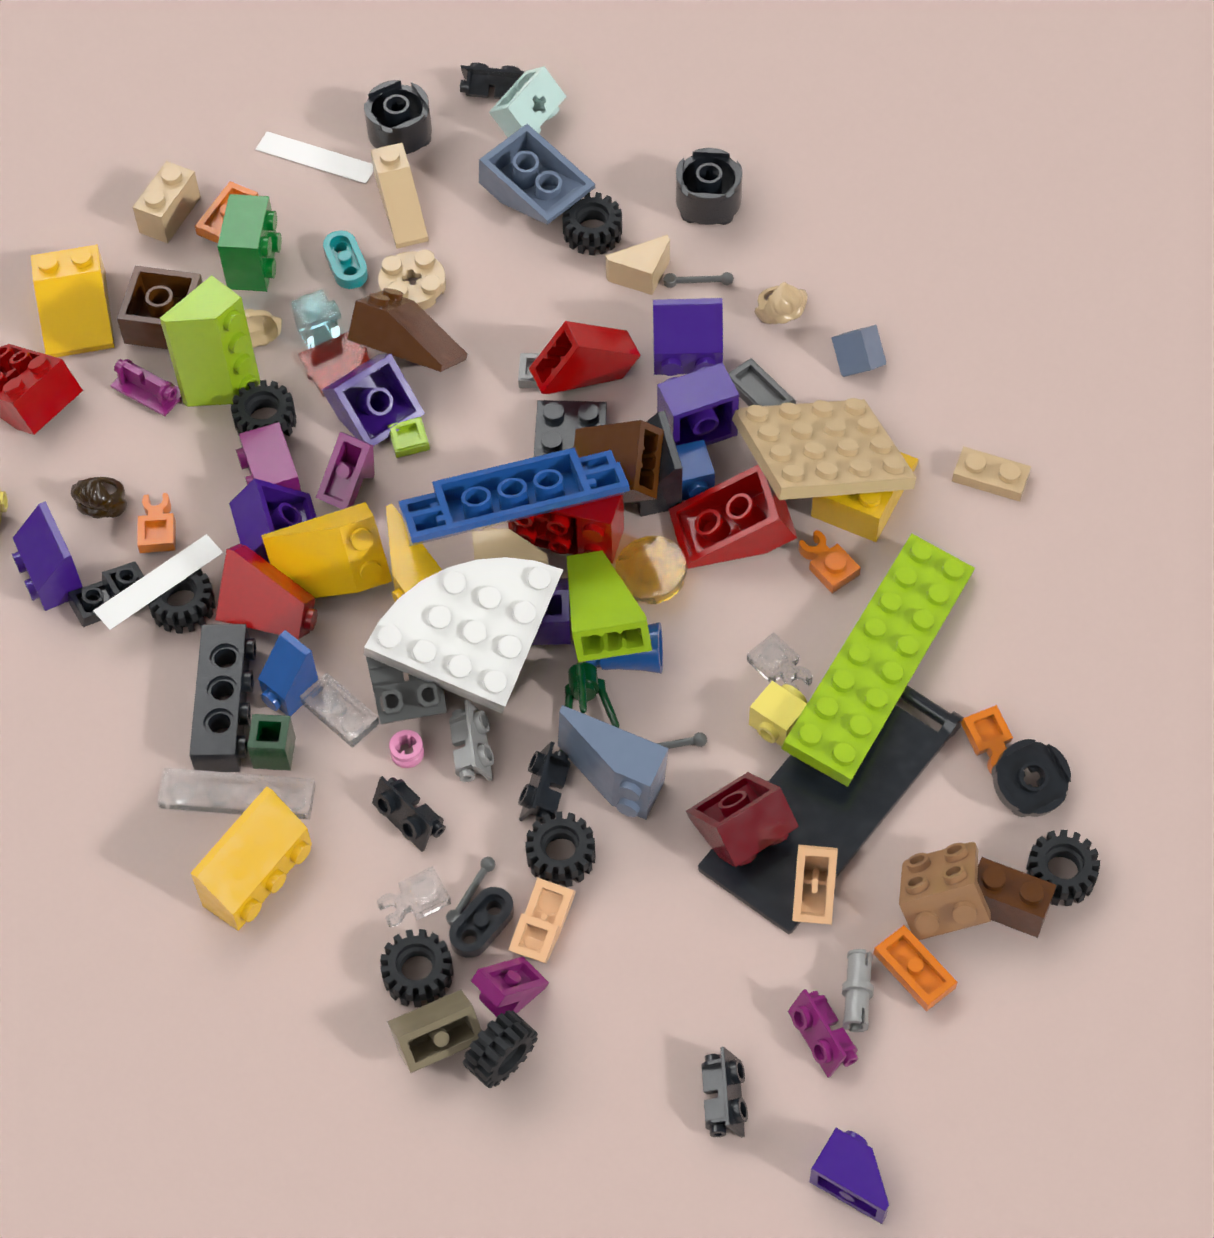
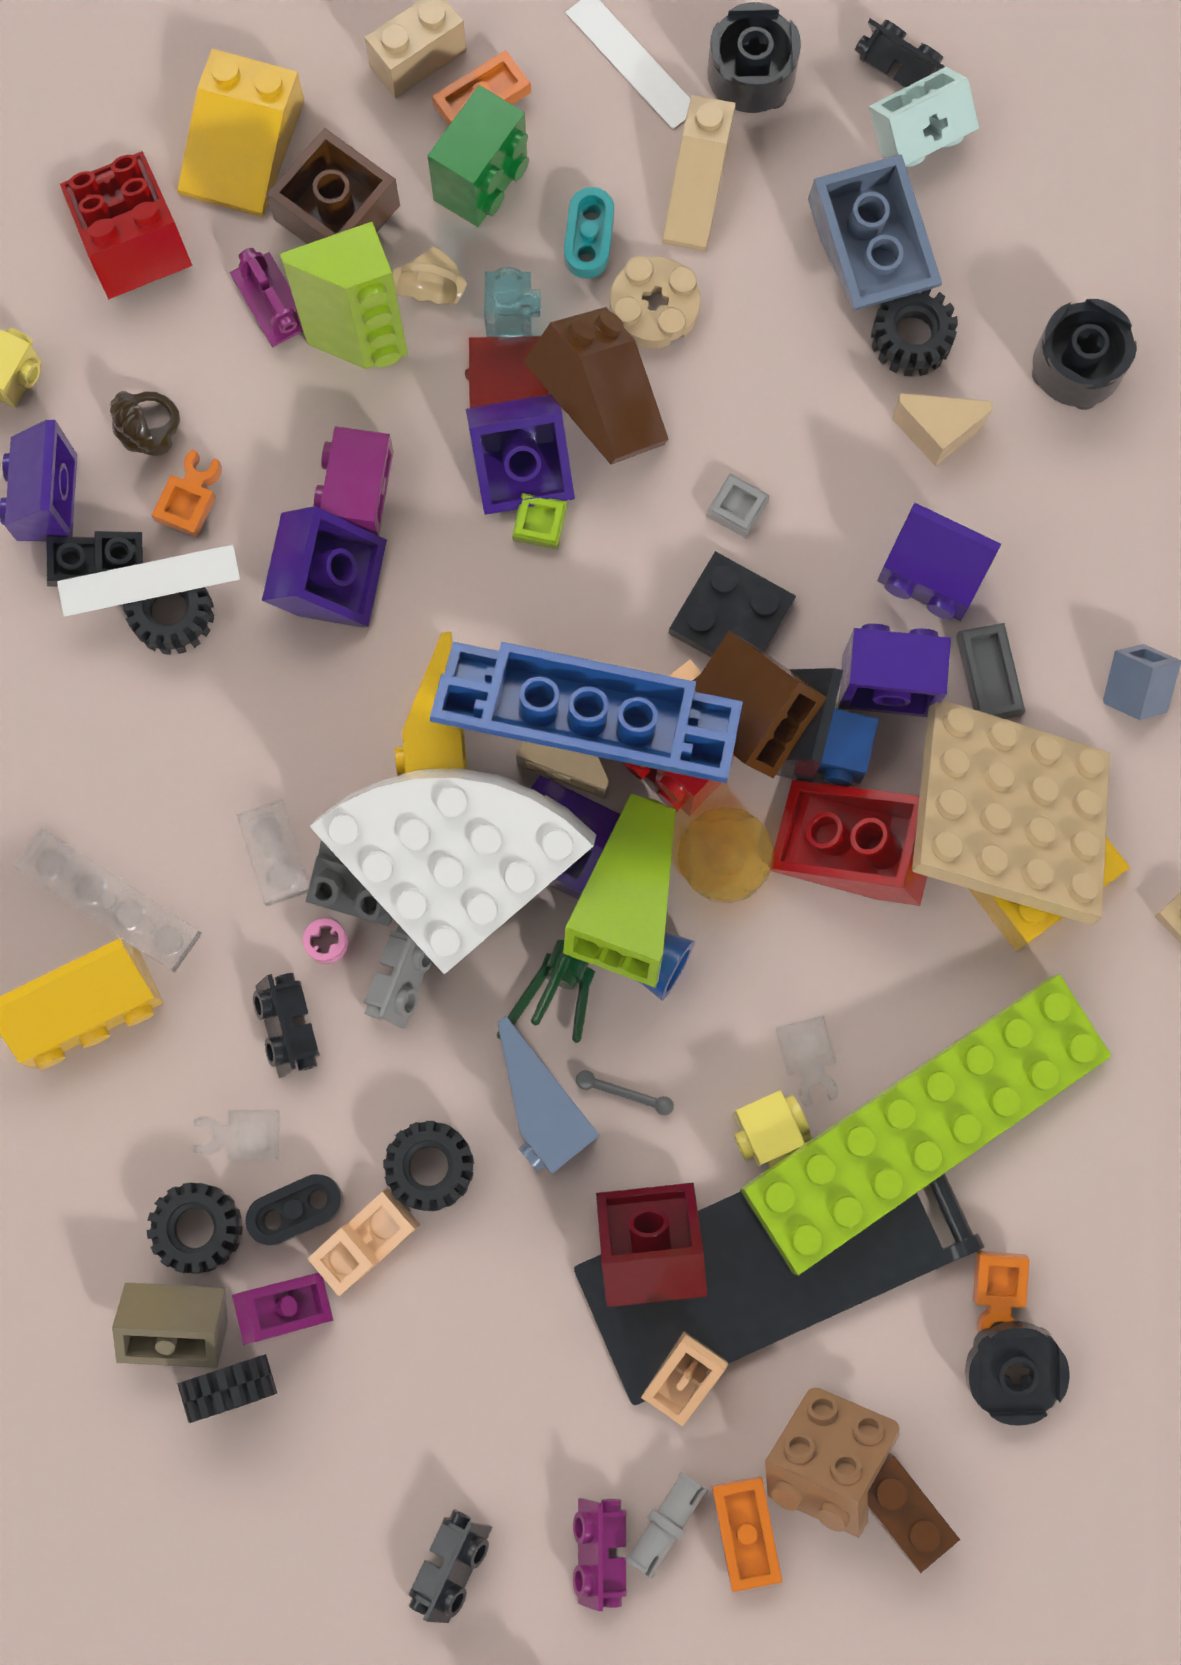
camera: 25 degrees right, 20 degrees up
(220, 646) = (171, 700): black brick -> none
(263, 397) = (386, 378): black tyre -> none
(263, 596) = (255, 664): red slope -> none
(271, 742) = (172, 861): dark green brick -> none
(287, 674) = (230, 785): blue slope -> none
(331, 552) = (356, 649): yellow slope -> none
(347, 467) = (434, 541): magenta slope -> none
(487, 864) = (273, 1181): dark grey hinge -> none
(546, 770) = (462, 1057): black hinge -> none
(583, 357) = (797, 527): red slope -> none
(671, 280) = (969, 458): dark grey hinge -> none
(783, 304) = (1087, 570): tan piece -> none
(830, 565) = (943, 959): orange plate -> none
(1068, 848) = (1018, 1494): black tyre -> none

